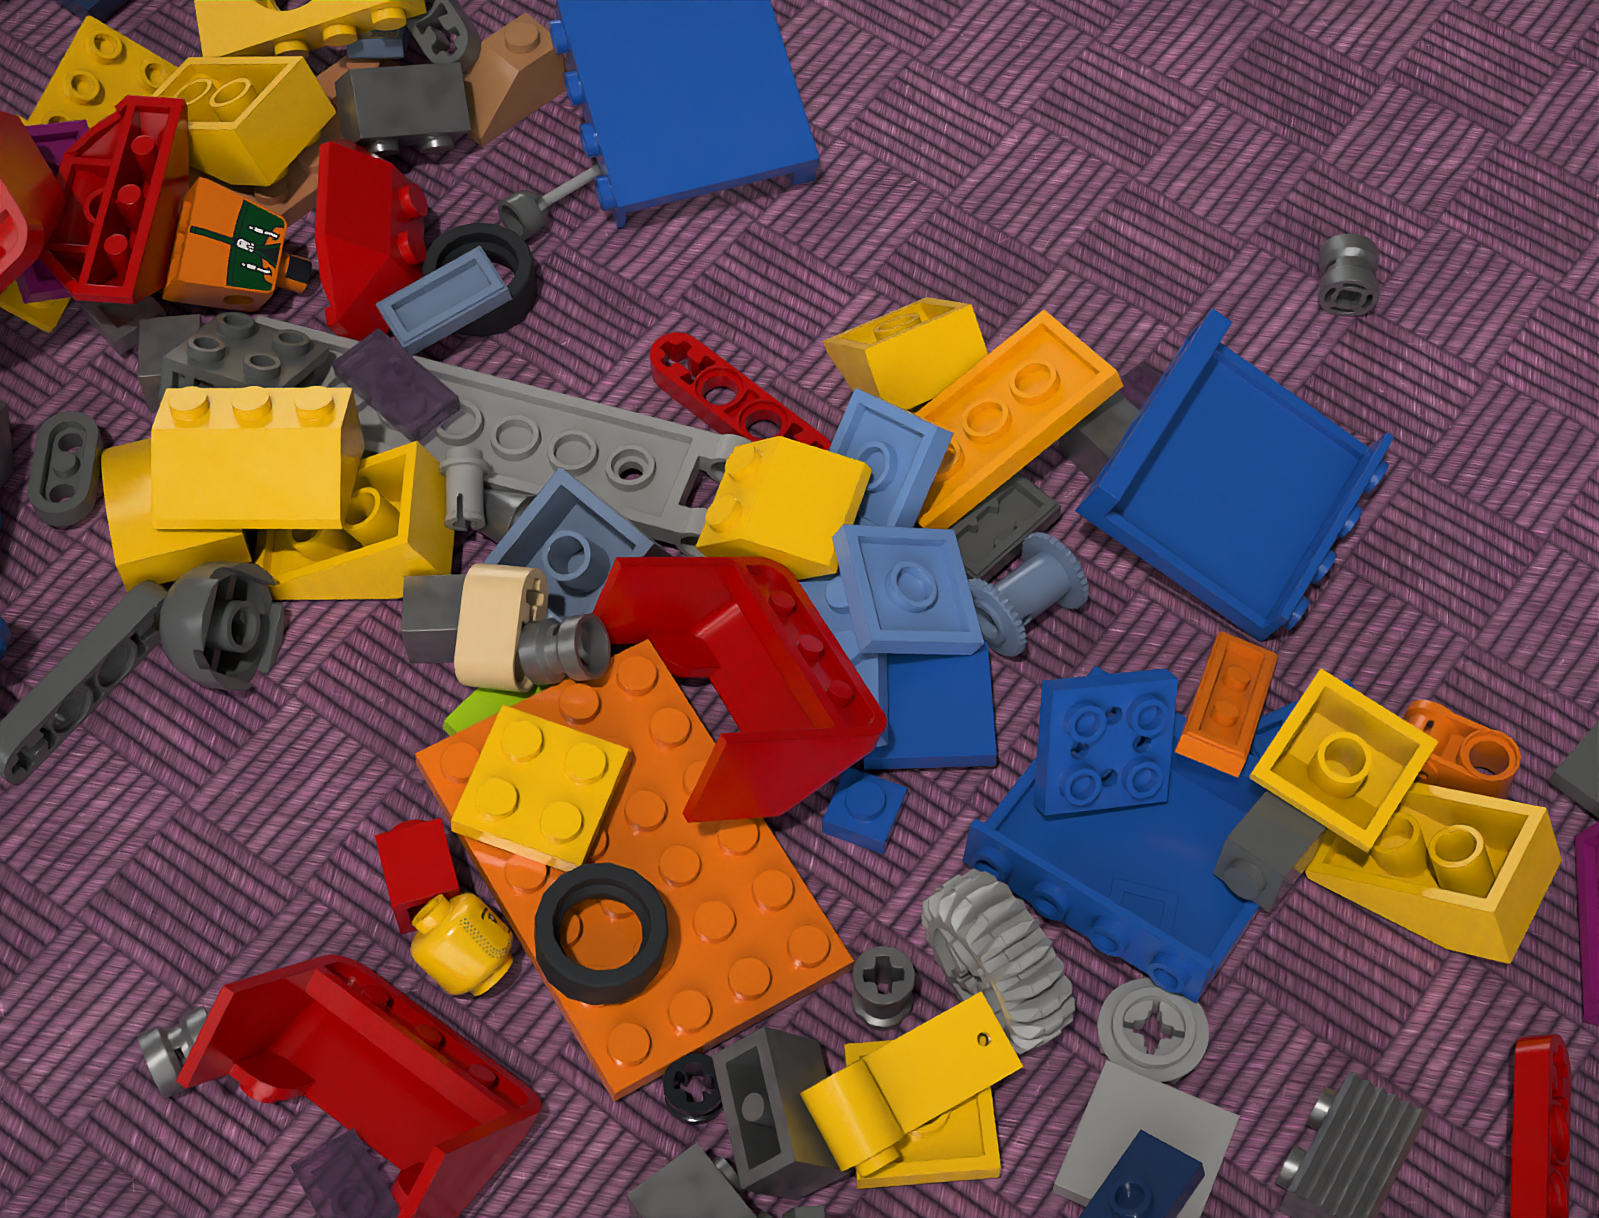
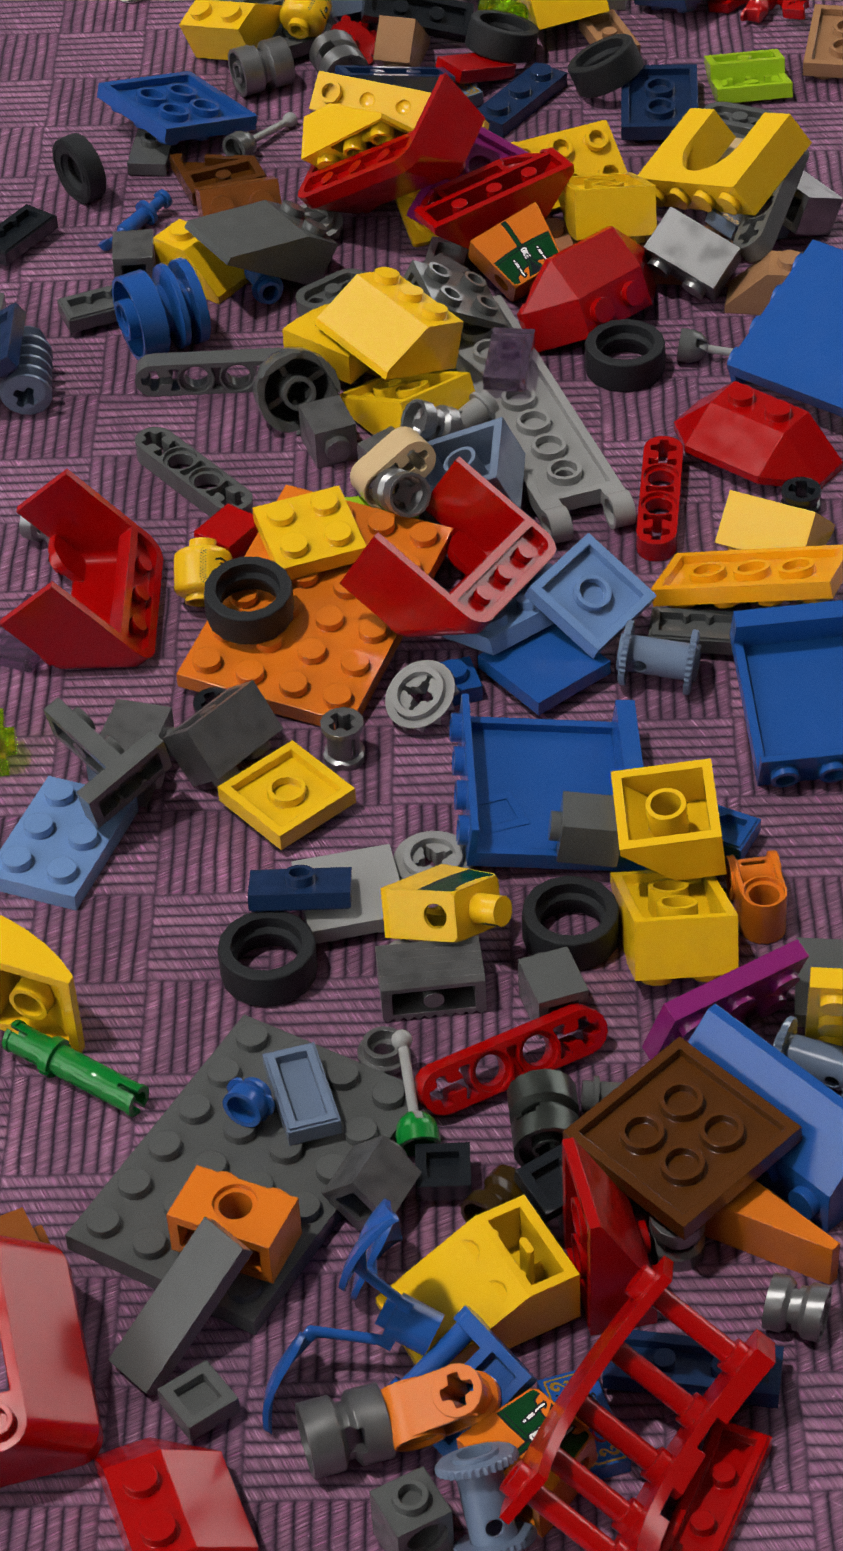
camera: 55 degrees right, 15 degrees down
(245, 820) = (186, 481): none -> dark grey beam
(321, 641) = (328, 431): none -> flat silver brick
(444, 301) = (581, 341): sand blue tile -> none
(451, 551) = (431, 420): none -> flat silver wheel
(734, 269) = (757, 437): none -> red wedge
(784, 505) = (607, 515): yellow slope -> none
(862, 281) = (802, 493): none -> black bush
(898, 449) = (677, 541): medium blue plate -> none
(909, 875) = (420, 678): none -> light grey gear
(909, 1083) = (256, 756): yellow door -> none
(996, 947) = (395, 758): light grey gear -> none
(1079, 716) = (602, 713): blue plate -> none
(1227, 704) = (631, 754): orange tile -> none
(1290, 1072) = (465, 901): none -> yellow torso
(1381, 919) = (578, 896): none -> black tyre
(1463, 1053) = (550, 983): none -> dark grey brick

